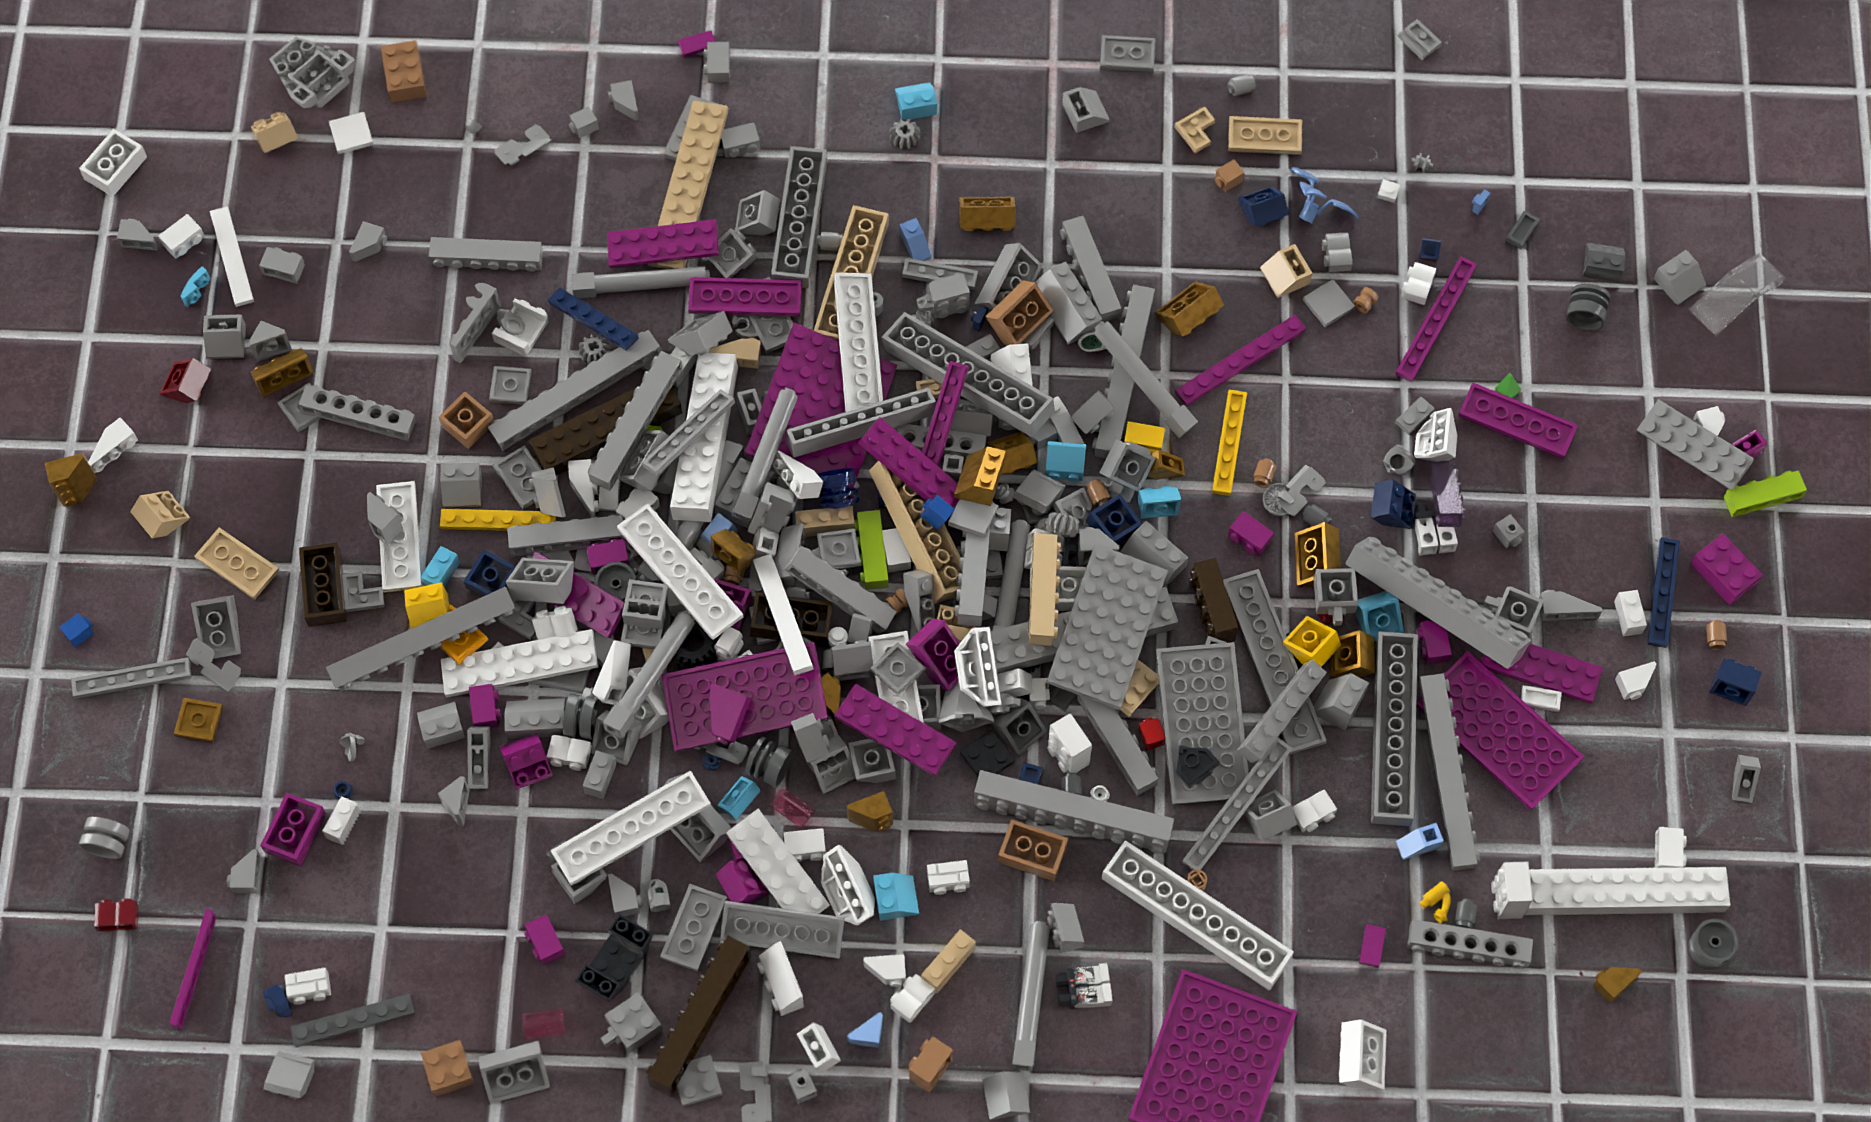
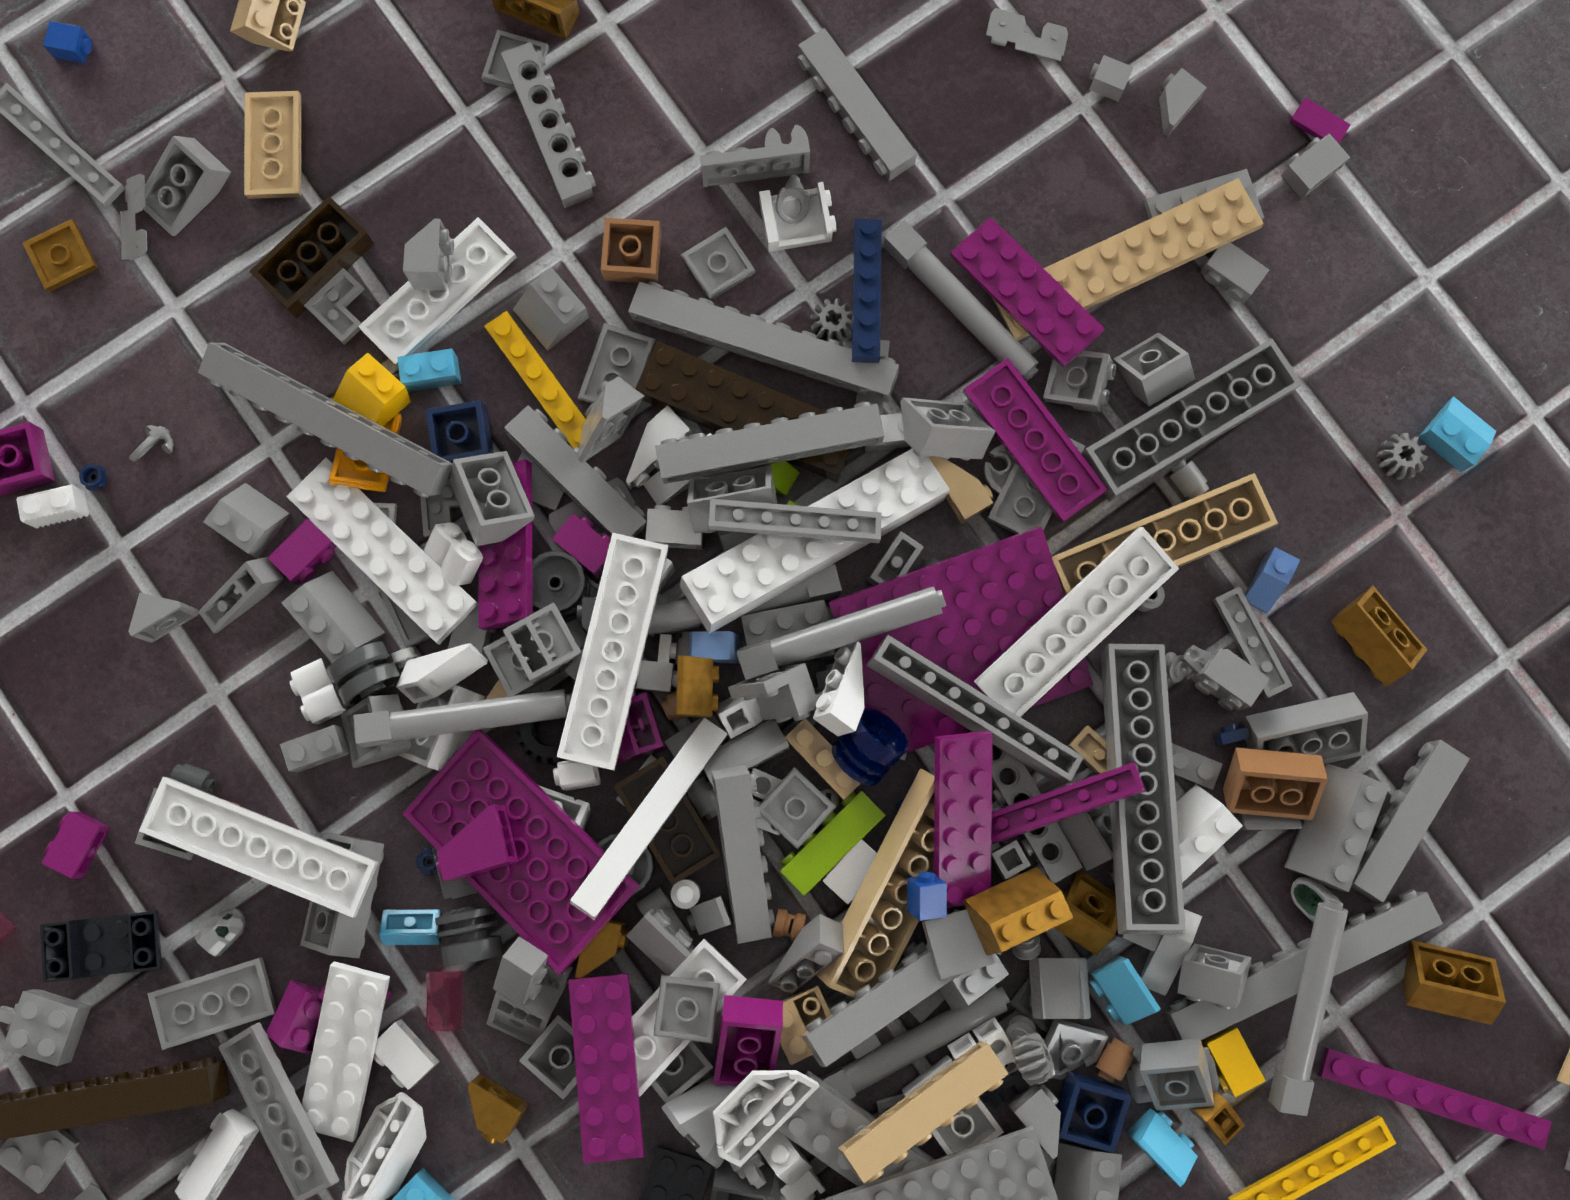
camera: 50 degrees right, 15 degrees up
(526, 761) = (272, 651): magenta slope -> none
(624, 897) = (189, 893): light grey slope -> none

